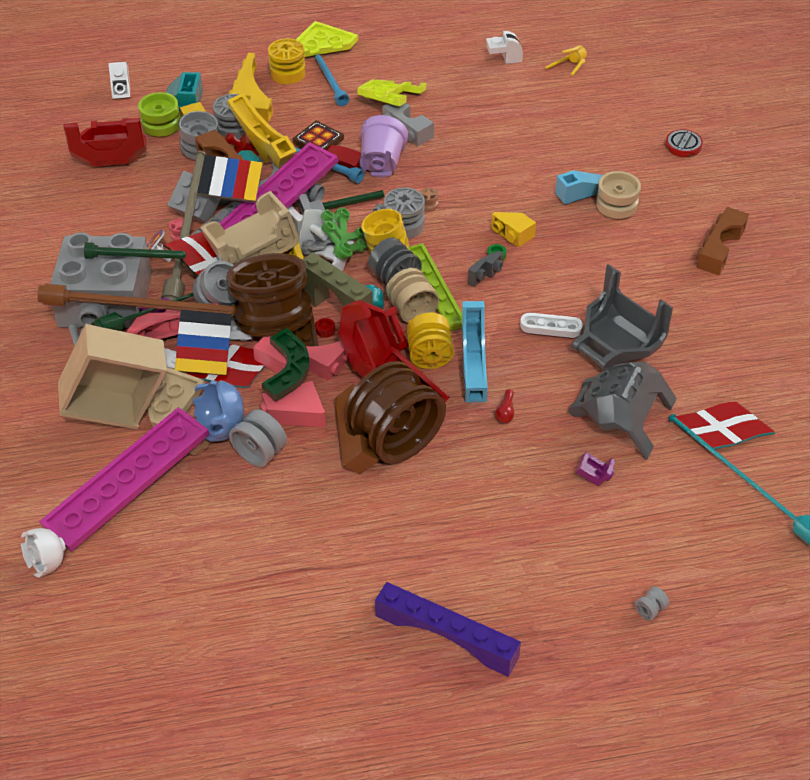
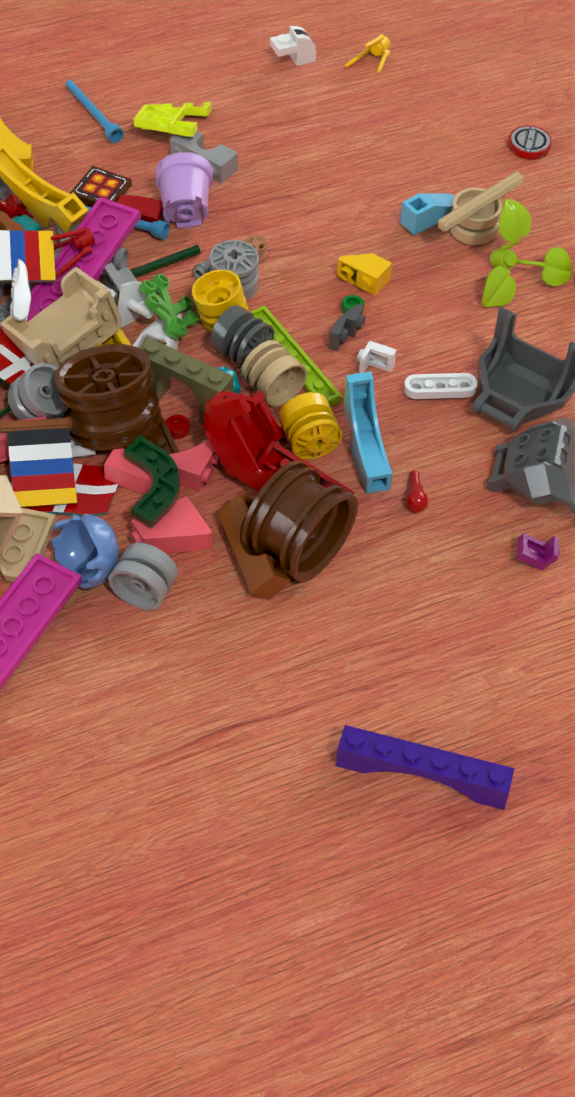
camera: 15 degrees left, 5 degrees up
(221, 210) = (20, 293): none -> white animal
(283, 172) = (81, 239): none -> red plant
(287, 61) = (35, 93): yellow wheel -> none
(311, 246) = (136, 326): light grey plate -> none
(325, 39) = (68, 59): neon yellow plate -> none
(504, 294) = (376, 356): none -> white bracket
(621, 182) = (480, 201): none -> tan axle
(640, 201) = (513, 224): none -> lime plant

